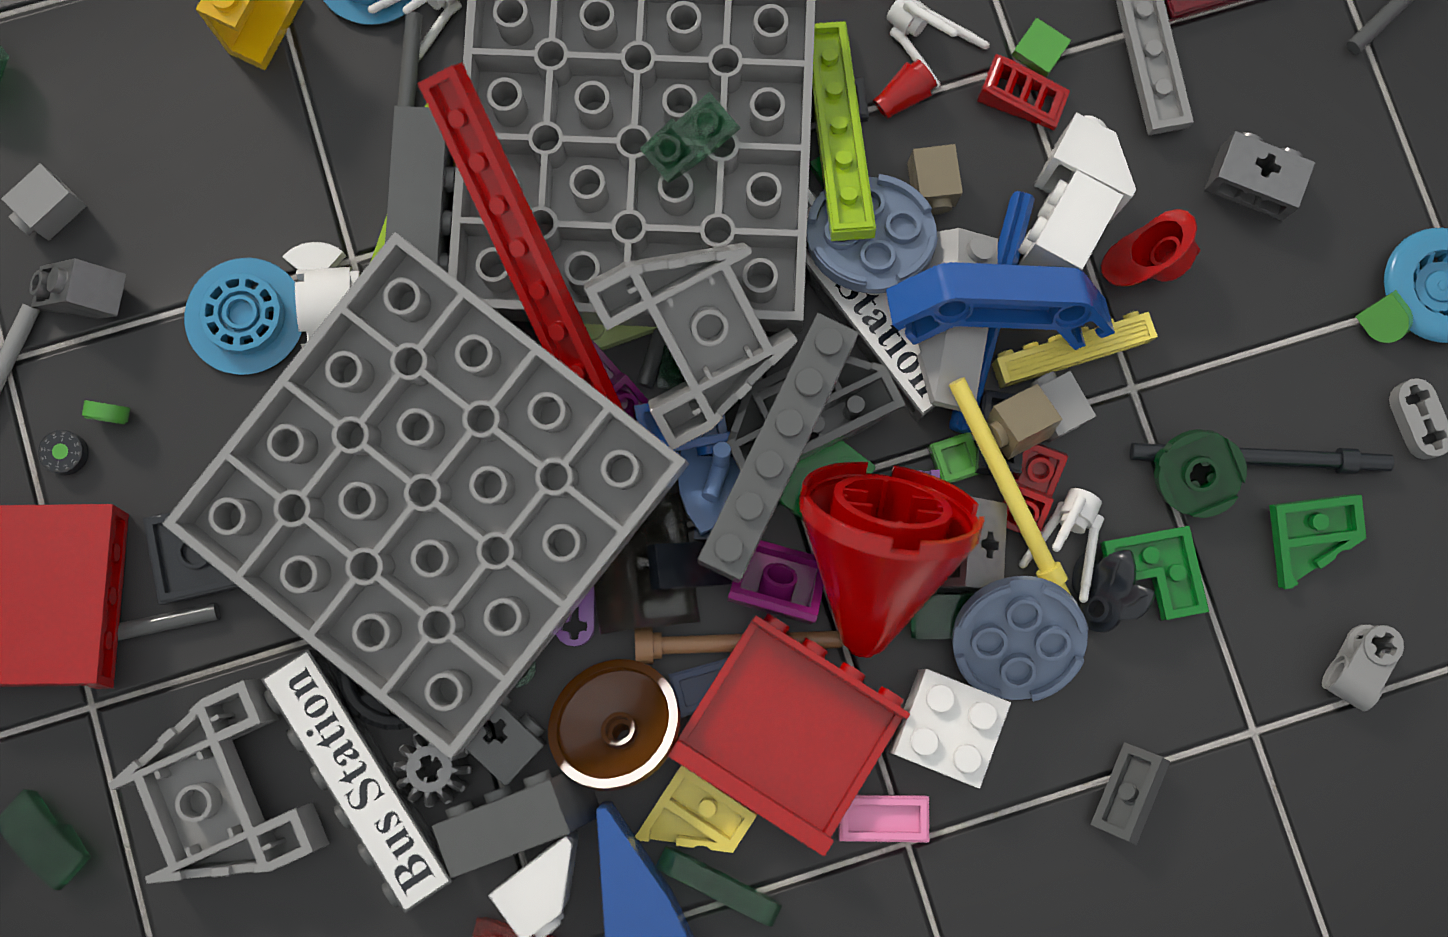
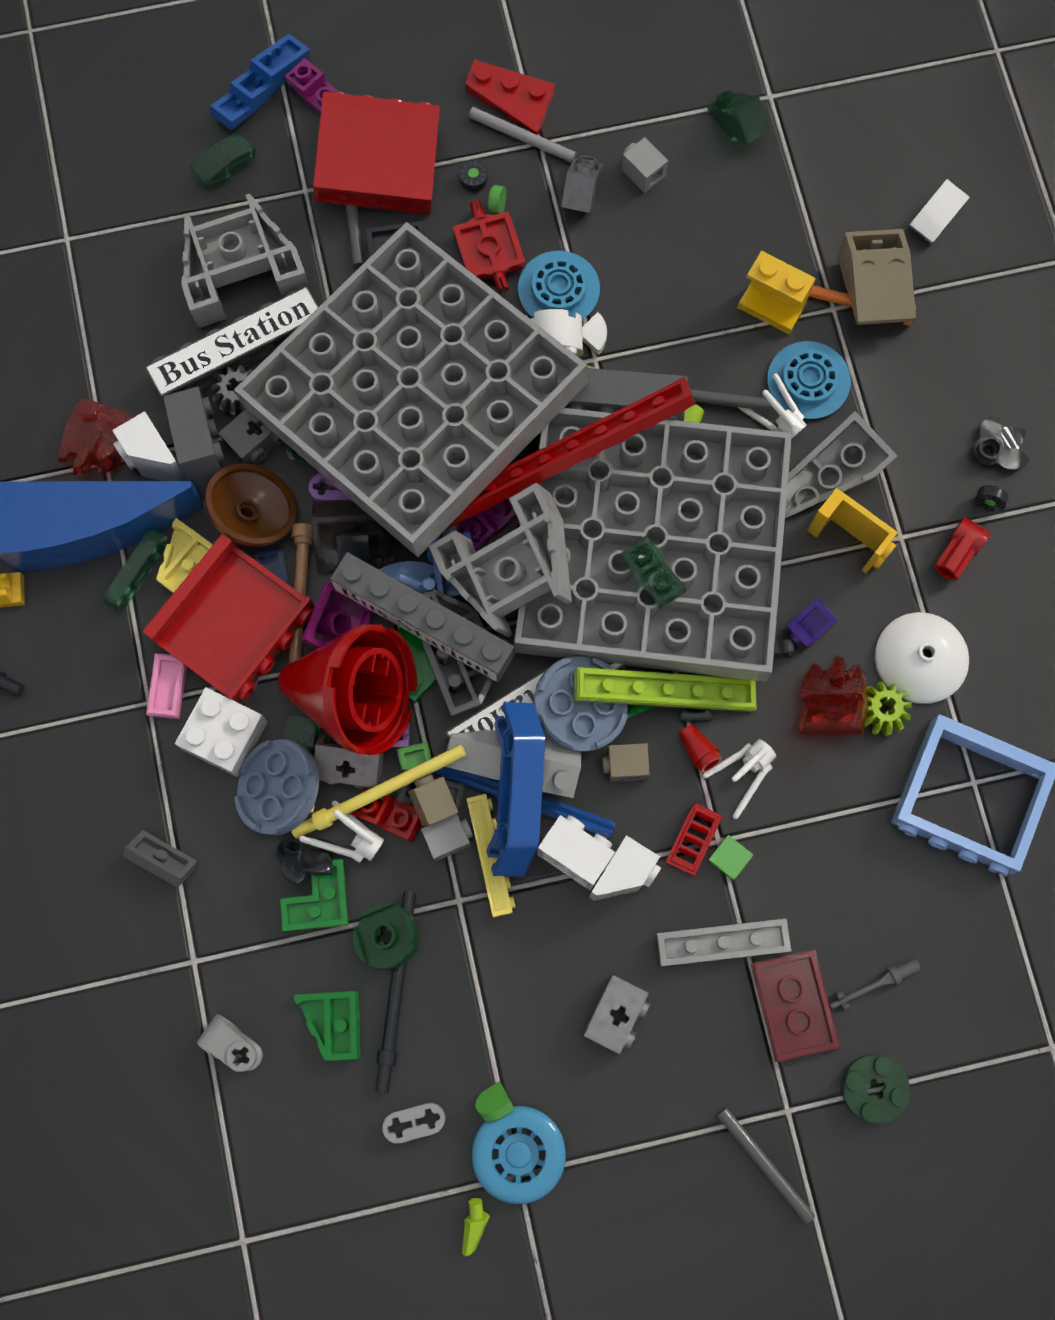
camera: 100 degrees right, 5 degrees down
(181, 418) = (489, 246): none -> red plate
(1156, 251) = (559, 921): red piece -> none

